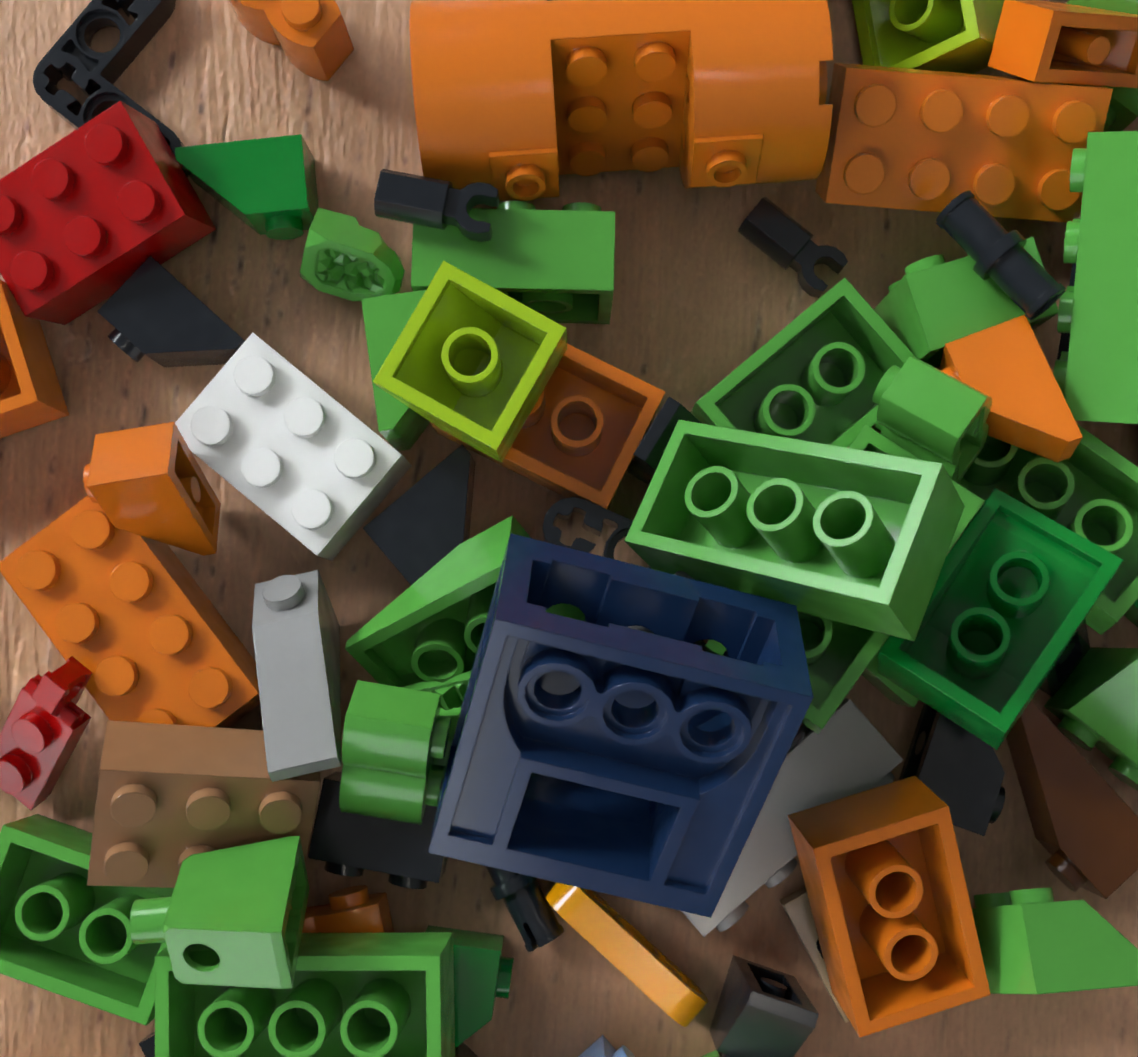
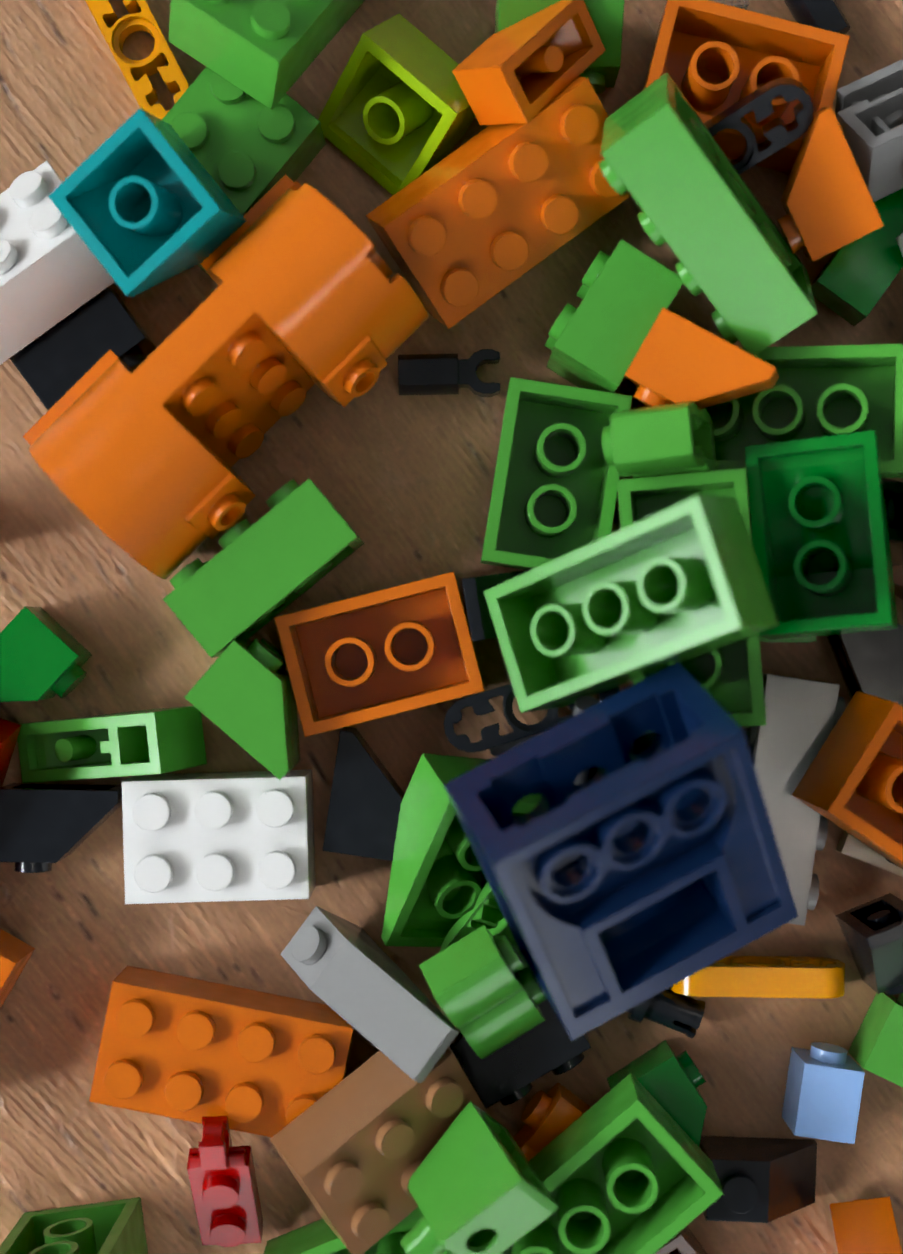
camera: 45 degrees left, 5 degrees up
(154, 487) = (152, 952): orange slope -> none
(274, 305) = (112, 745): none -> bright green slope
(349, 259) = (139, 664): bright green rock -> none
(433, 203) = (175, 588): black bar -> none
(473, 361) = (304, 678): lime slope -> none
(1000, 255) = (609, 279): black pin -> none

